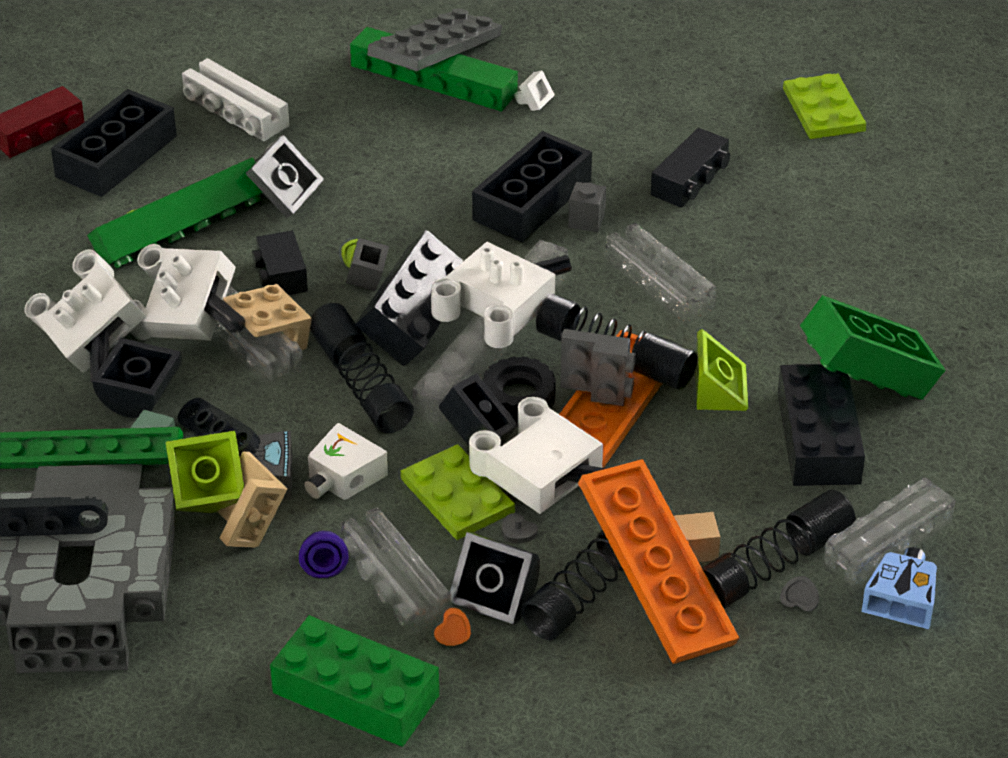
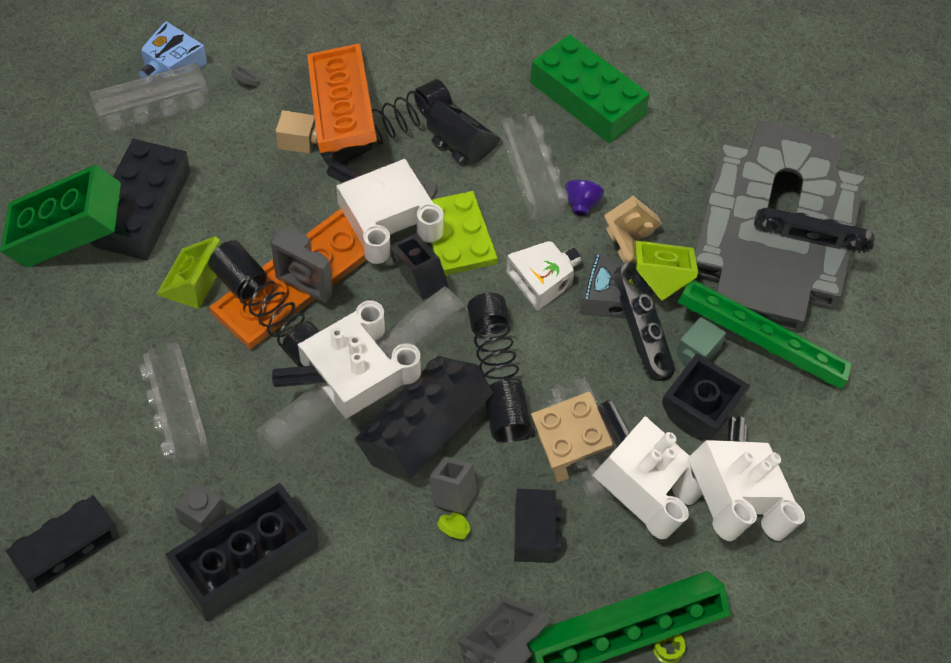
camera: 165 degrees left, 15 degrees up
(454, 628) = (497, 115): orange piece -> none
(520, 371) = (370, 289): black tyre -> none
(816, 519) = (205, 114): black piece -> none

